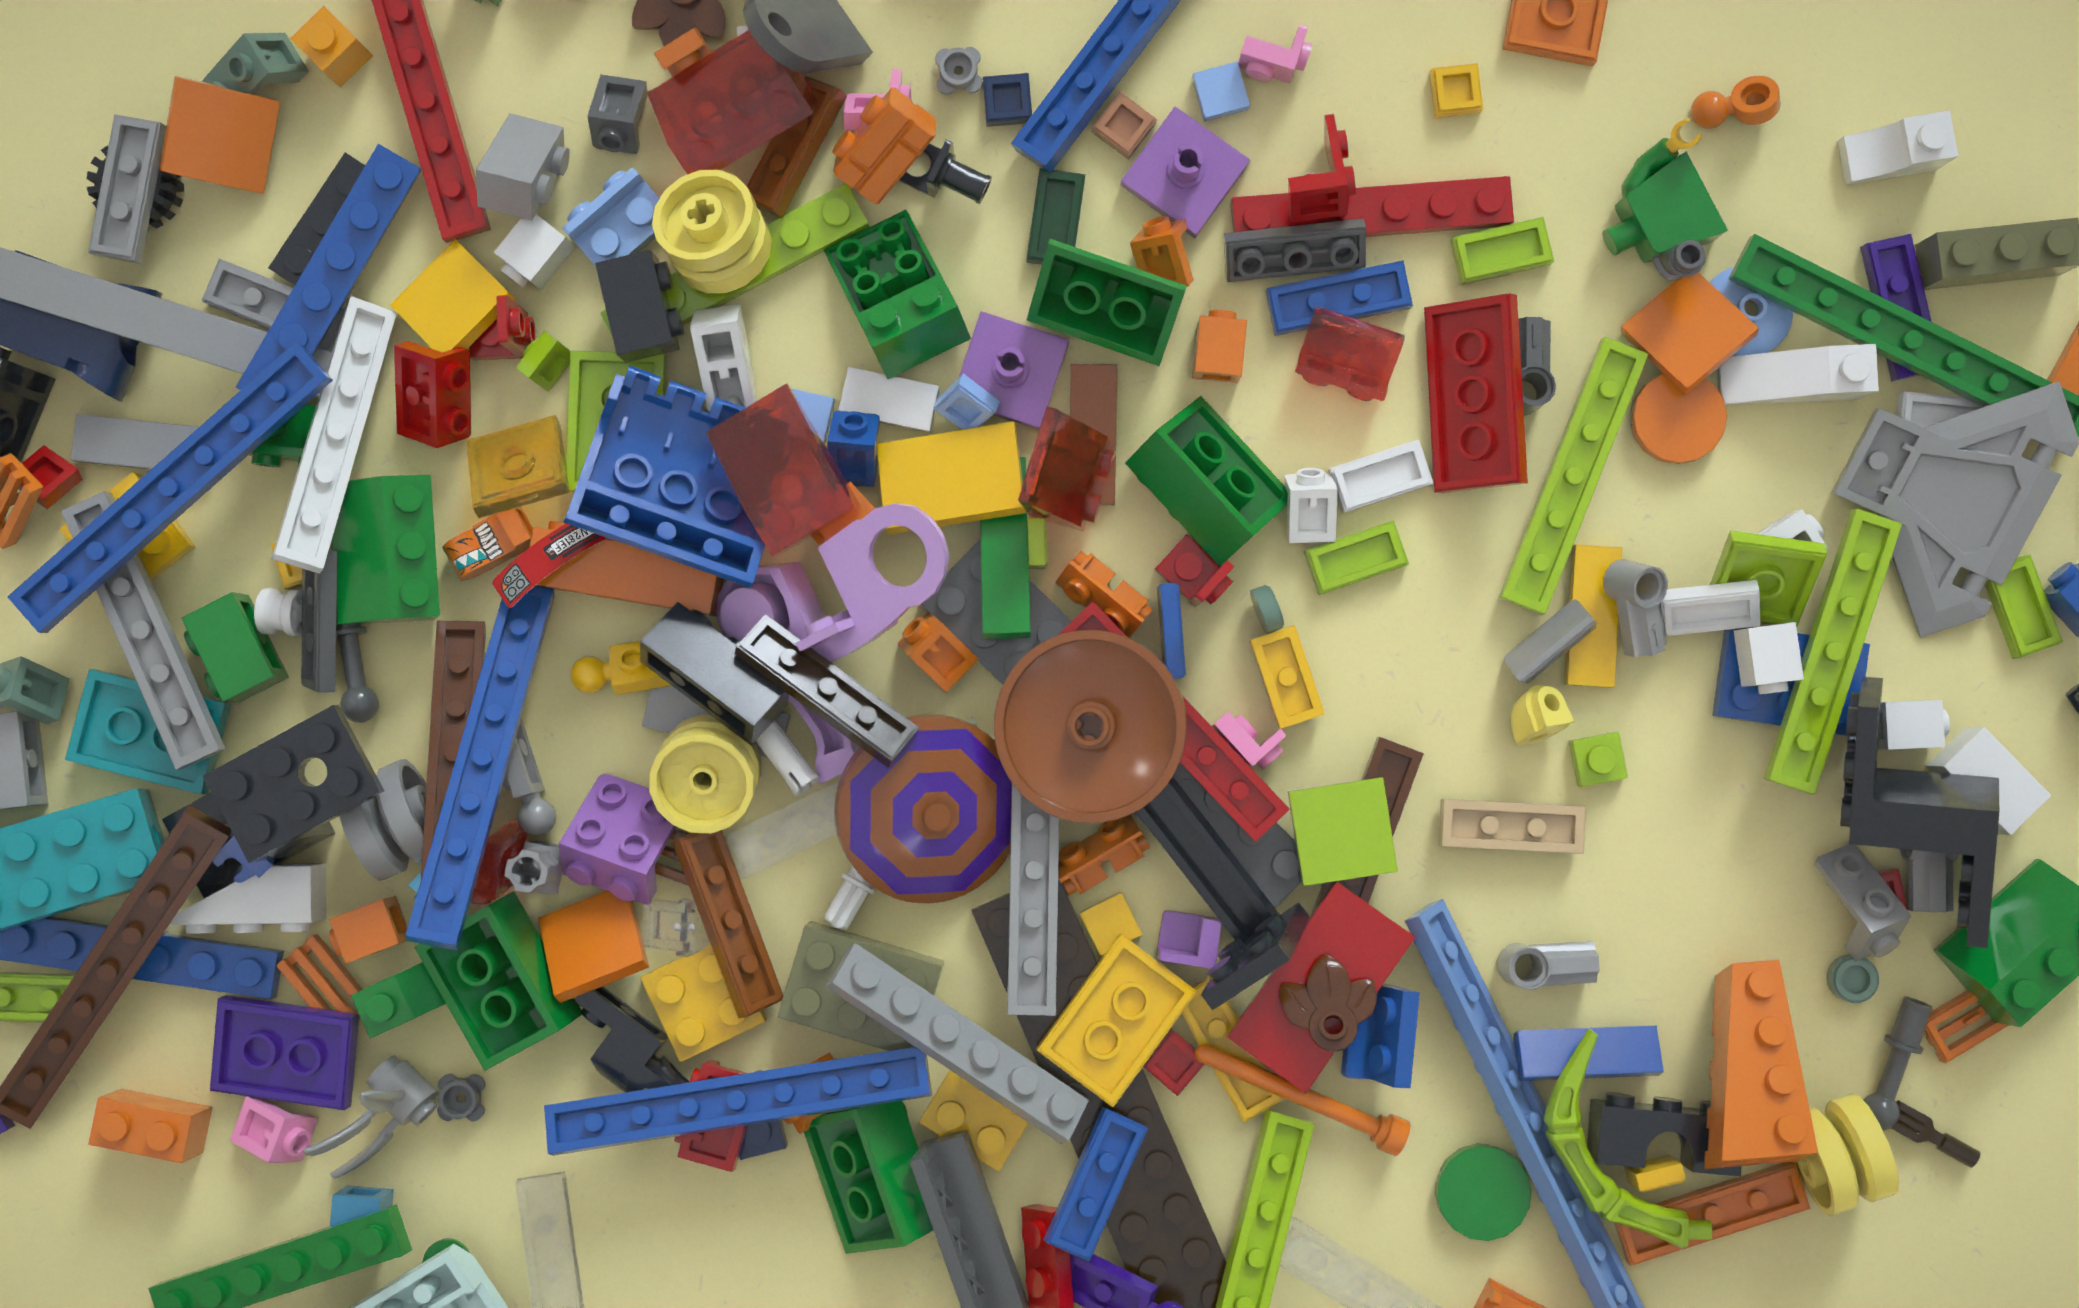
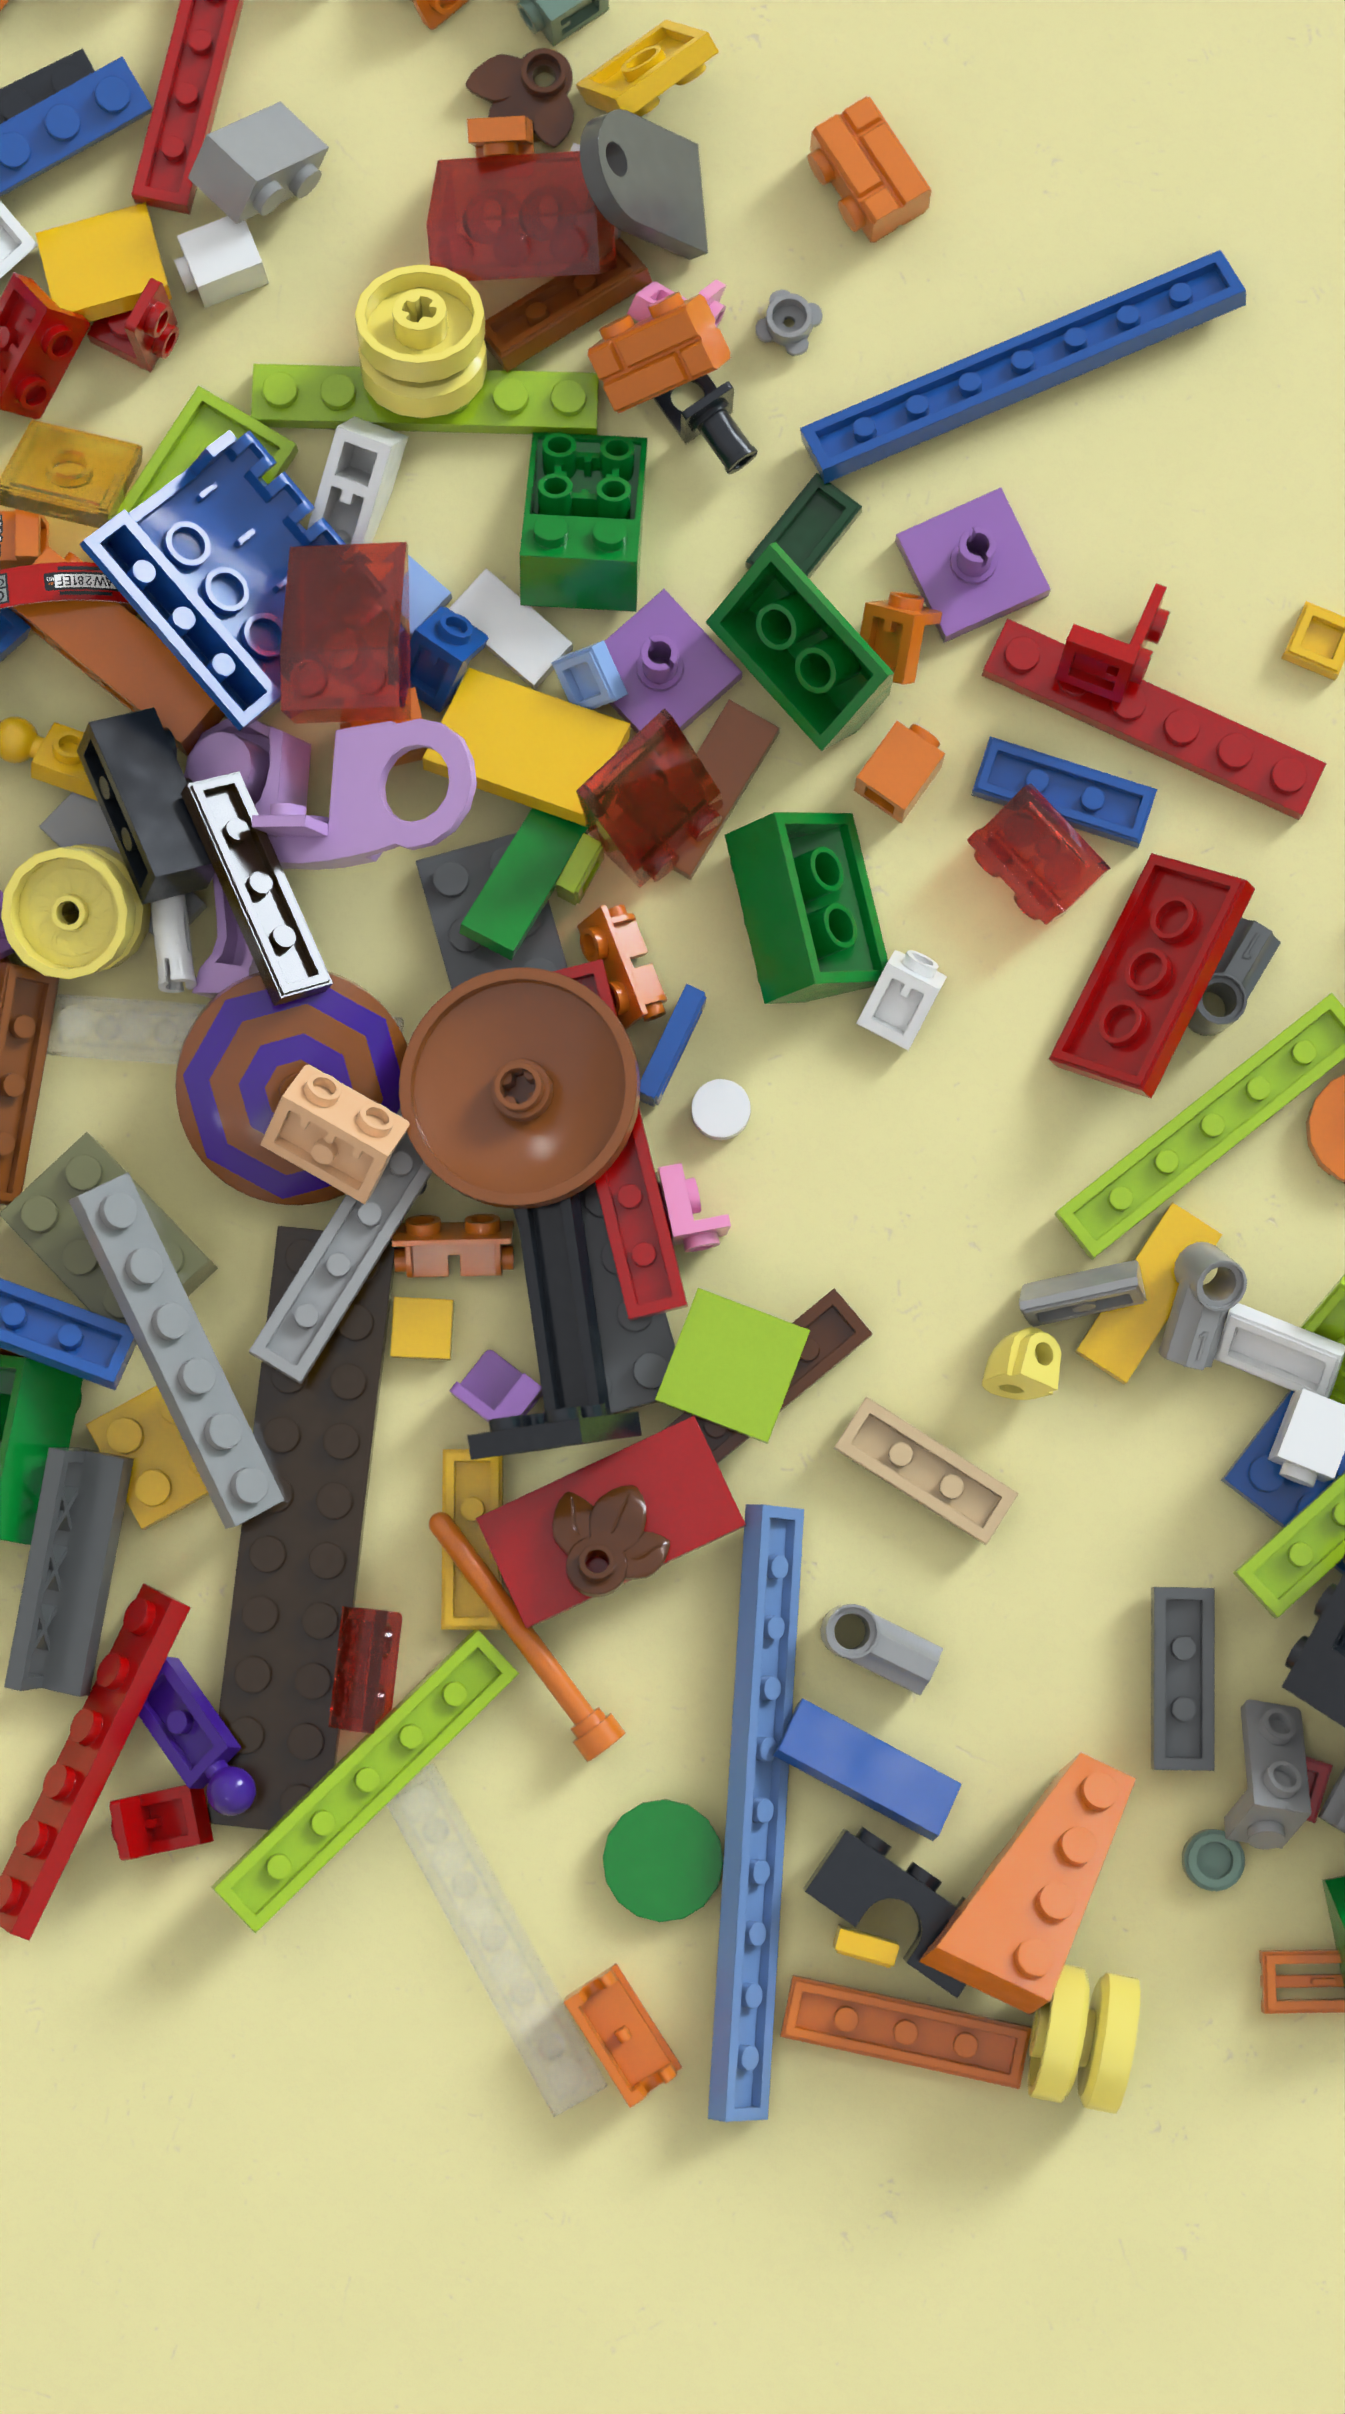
camera: 25 degrees right, 5 degrees down
(544, 361) = (164, 381): lime plate -> none
(616, 220) = (323, 278): light blue bracket -> none
(617, 113) = (394, 166): dark grey bracket -> none
(639, 305) = (298, 376): black brick -> none
(848, 900) = (151, 1138): white axle -> none
(936, 650) = (404, 924): orange bracket -> none
(981, 830) = (334, 1133): none -> light nougat bracket
(1007, 99) = (823, 381): dark blue tile -> none
(1095, 1184) = (238, 1595): blue tile -> none
(1116, 1020) = (365, 1431): yellow tile -> none
(1124, 125) = (935, 479): nougat tile -> none
(1173, 1062) = (402, 1520): red tile -> none
(1195, 572) = (734, 997): red bracket -> none
(1209, 1183) = (365, 1668): none -> clear red bracket
(1220, 91) = (1061, 500): light blue tile -> none
(1228, 655) = (721, 1109): none -> white tile
(1267, 608) = (790, 1080): sand green tile -> none
(1269, 61) = (1130, 494): bright pink bracket -> none
(1271, 251) = (1075, 722): dark grey tile -> none
(1286, 677) = (770, 1167): yellow plate -> none
(1356, 557) = (922, 1083): lime tile -> none
(1381, 476) = (999, 1010): white tile -> none
(1385, 1040) = (646, 1618): blue bracket -> none
(1502, 251) = (1273, 840): lime tile -> none
(1598, 759) = (1065, 1453): lime plate -> none
(1598, 1189) = (789, 1921): lime animal -> none
(1765, 868) = (1183, 1678): none -> dark grey plate
(1904, 1040) = (1163, 2025): dark grey pin -> none
(1920, 1129) = (1195, 2071): dark brown piece -> none

